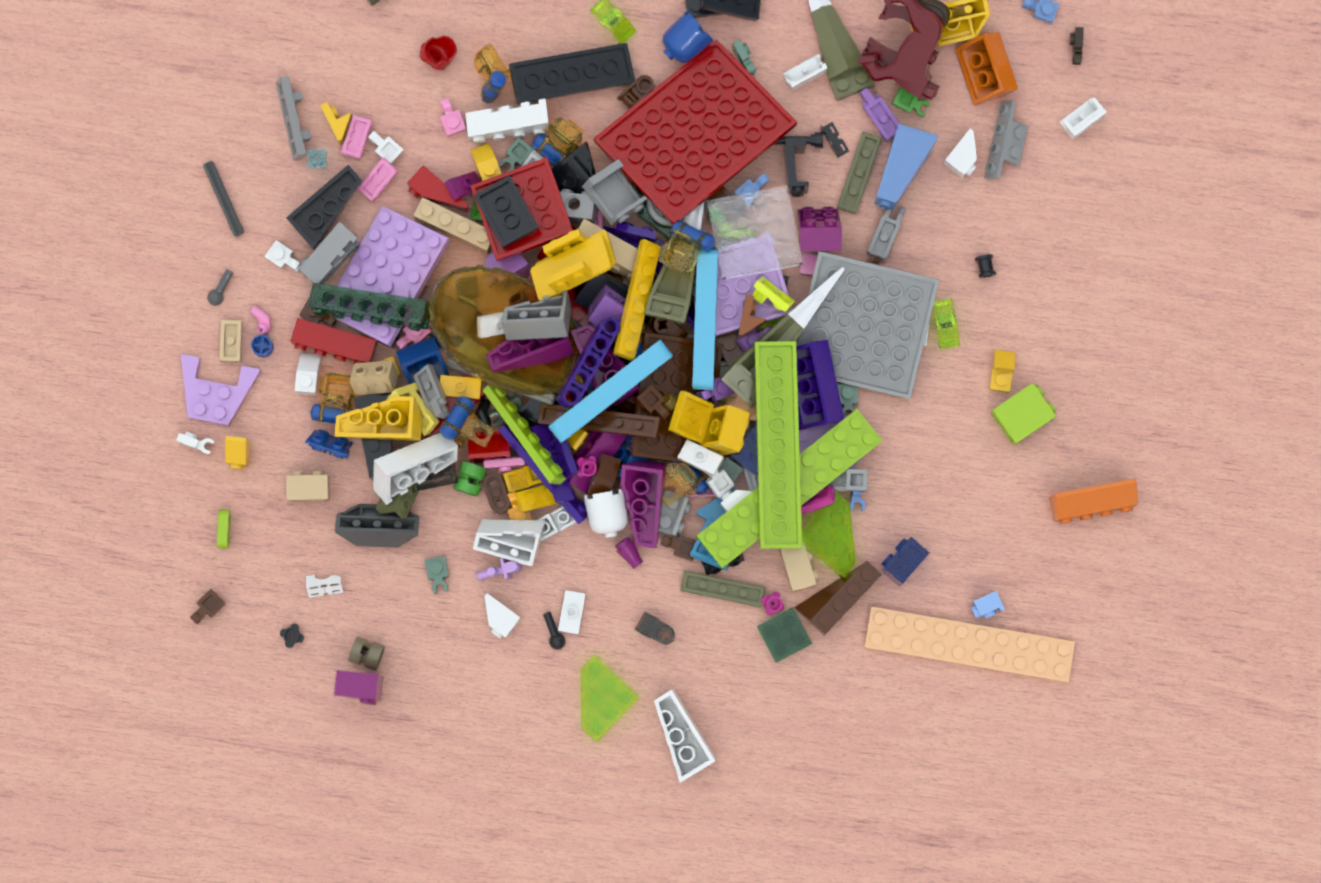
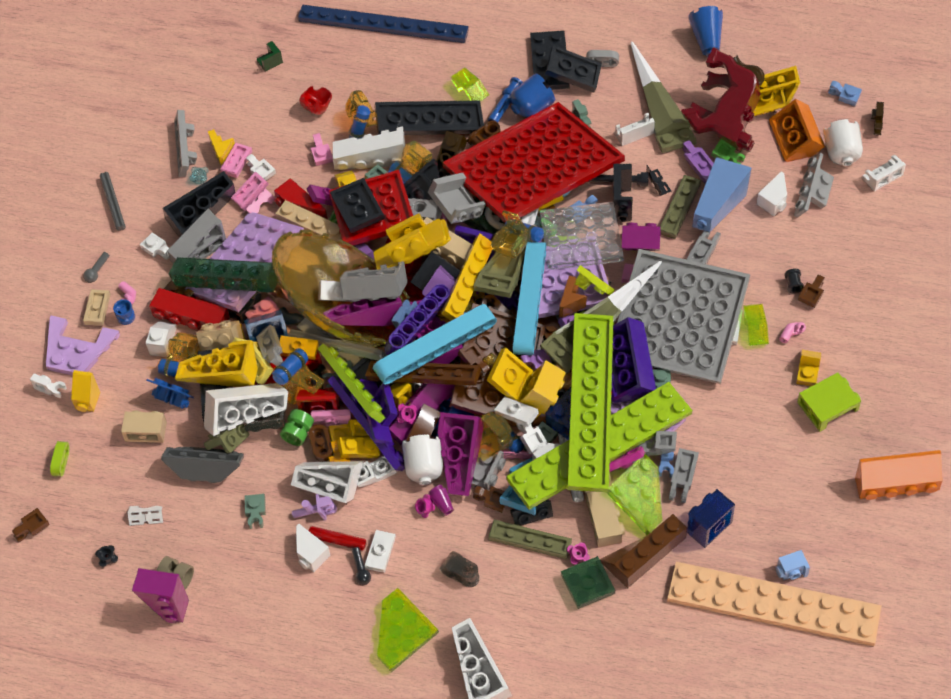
camera: 10 degrees right, 25 degrees down
(396, 186) = (264, 196): none -> bright pink piece
(525, 600) = (338, 538): none -> red axle
(572, 354) = (403, 312): none -> medium blue plate
(598, 120) = (451, 146): none -> dark brown slope
(612, 560) = (424, 506): none -> dark pink plate
(662, 24) = (505, 100): none -> blue pin
(875, 506) = (683, 473): none -> light grey hinge
(984, 326) = (791, 330): none -> bright pink arm
(1005, 281) = (812, 292): none -> reddish brown plate
(1039, 86) = (843, 142): none -> white cylinder

